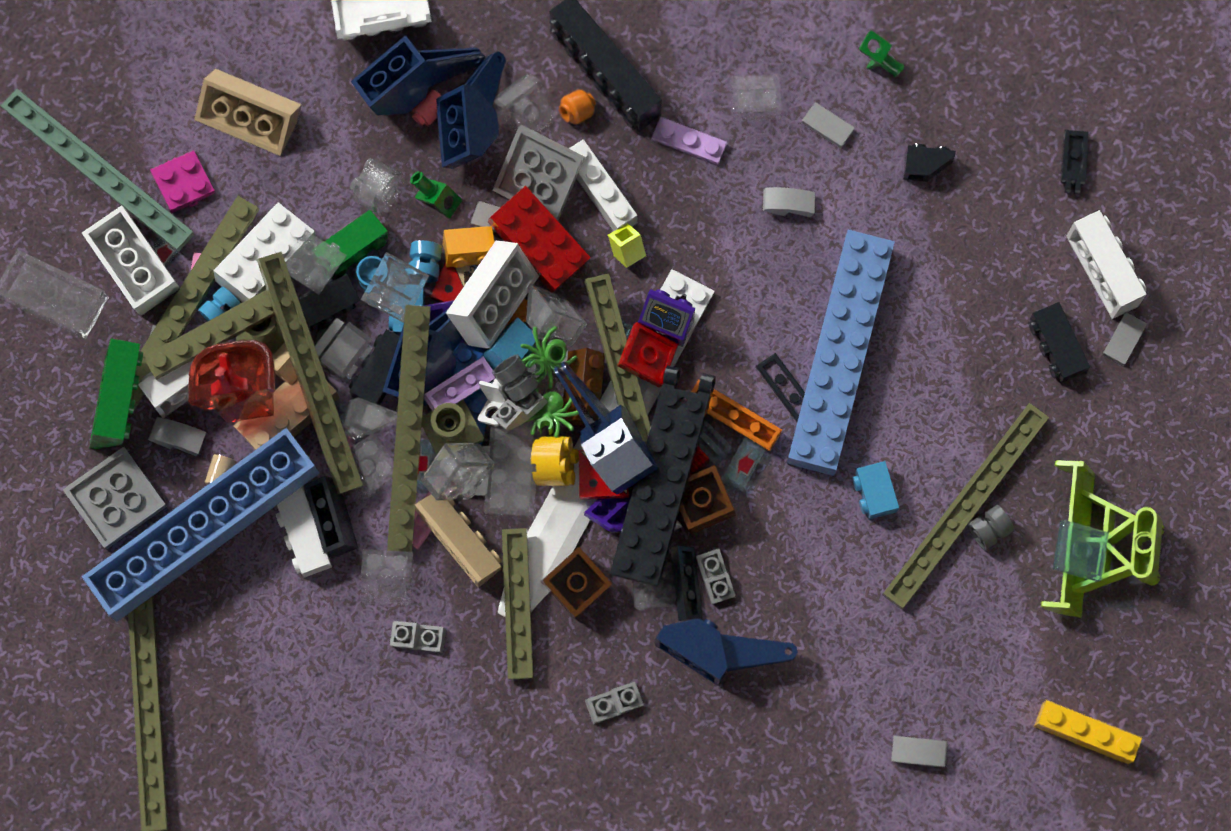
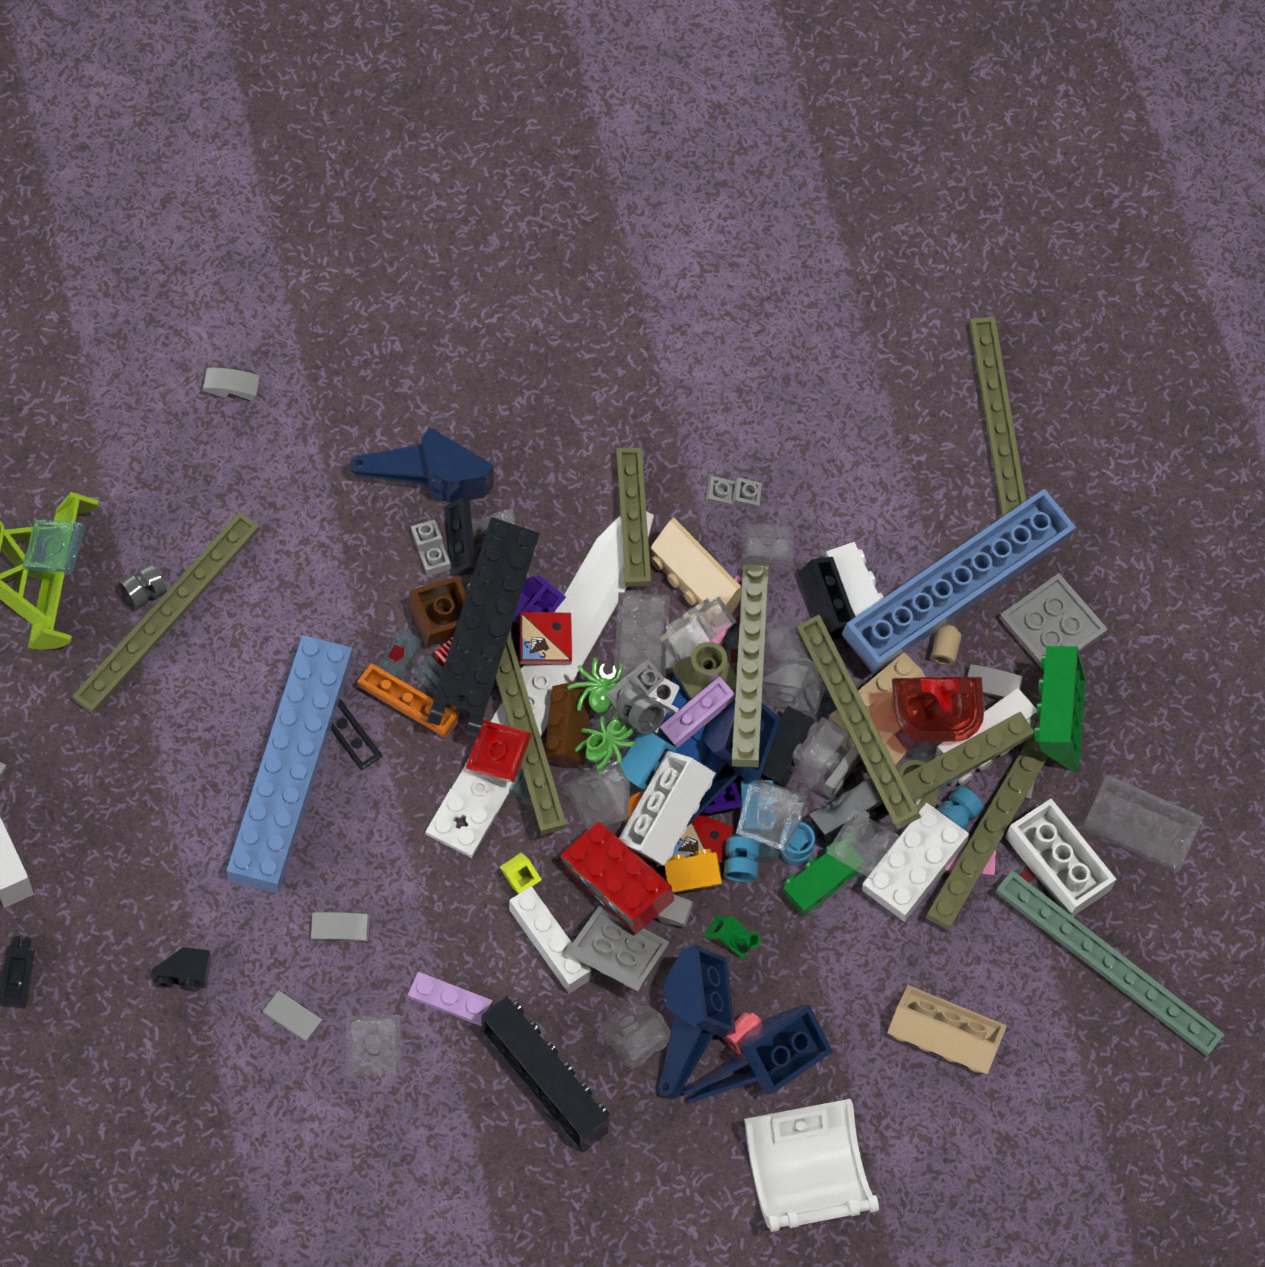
camera: 175 degrees right, 10 degrees down
(182, 181) = (1013, 953): dark pink plate -> none
(377, 186) = (796, 936): clear brick -> none
(554, 461) = (598, 640): yellow brick -> none
(576, 582) = (573, 533): reddish brown brick -> none
(577, 107) = (576, 1033): orange head -> none
(610, 442) = (540, 657): dark blue slope -> none
(614, 702) = (533, 432): light grey slope -> none
(667, 316) = (477, 787): slope -> none
(876, 490) = (260, 625): dark azure brick -> none
(881, 56) = (230, 1087): green bracket -> none
(1058, 343) = (54, 773): black brick -> none
(1087, 732) = (61, 396): yellow brick -> none

